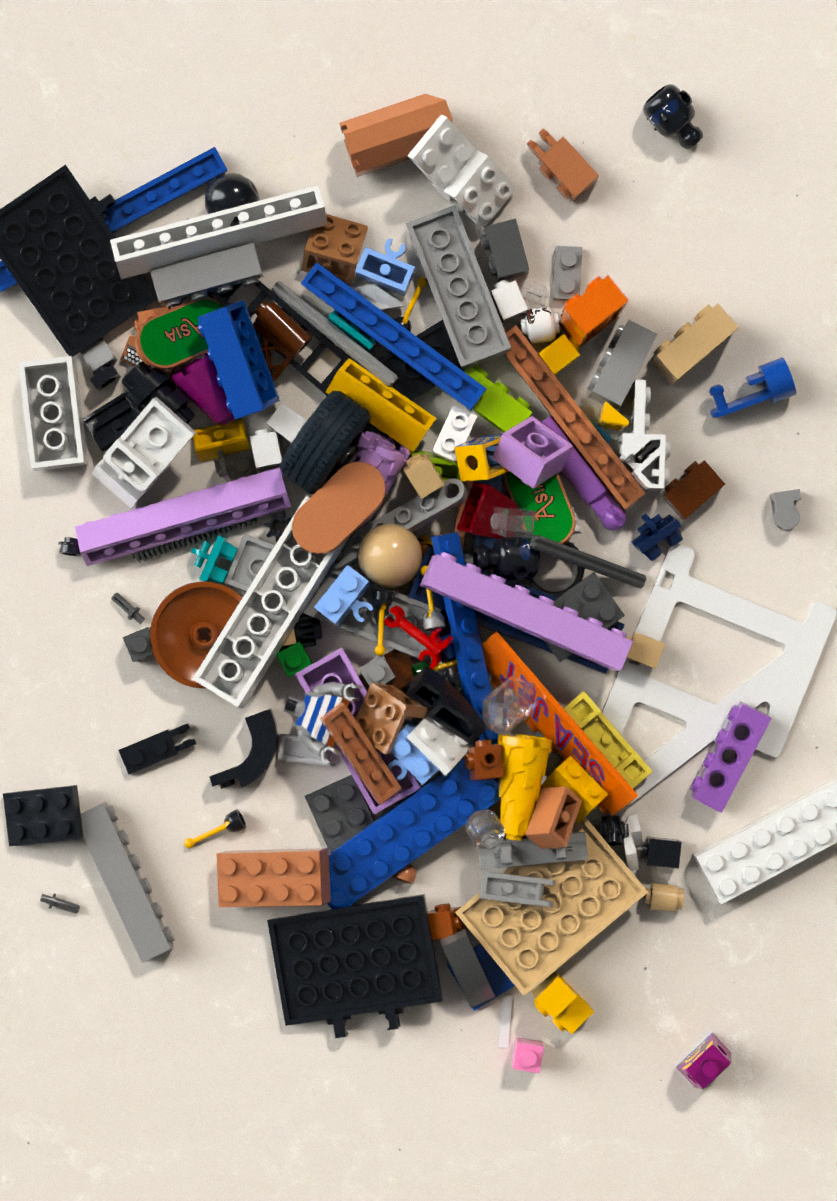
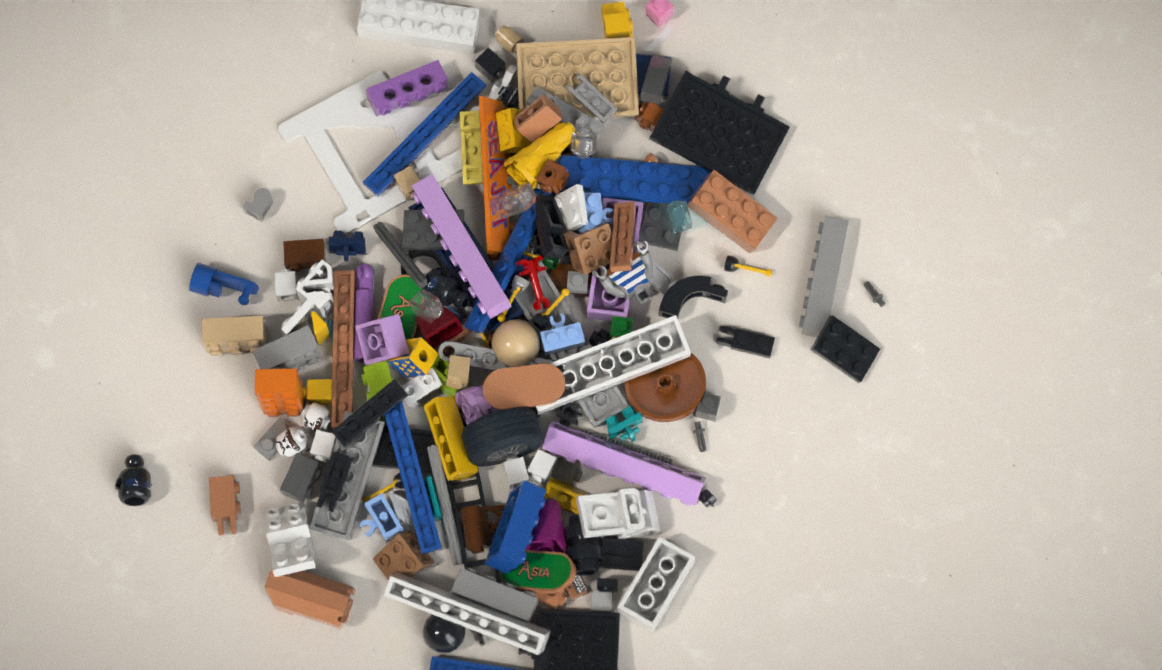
camera: 140 degrees left, 15 degrees down
(326, 829) = (678, 216): none -> clear light blue brick
(465, 270) = (334, 479): none -> black hinge
(480, 361) = (369, 413): none -> black plate
(543, 276) = (291, 442): none -> white head
(671, 719) = (424, 133): none -> blue plate
(686, 442) = (286, 285): none -> white brick

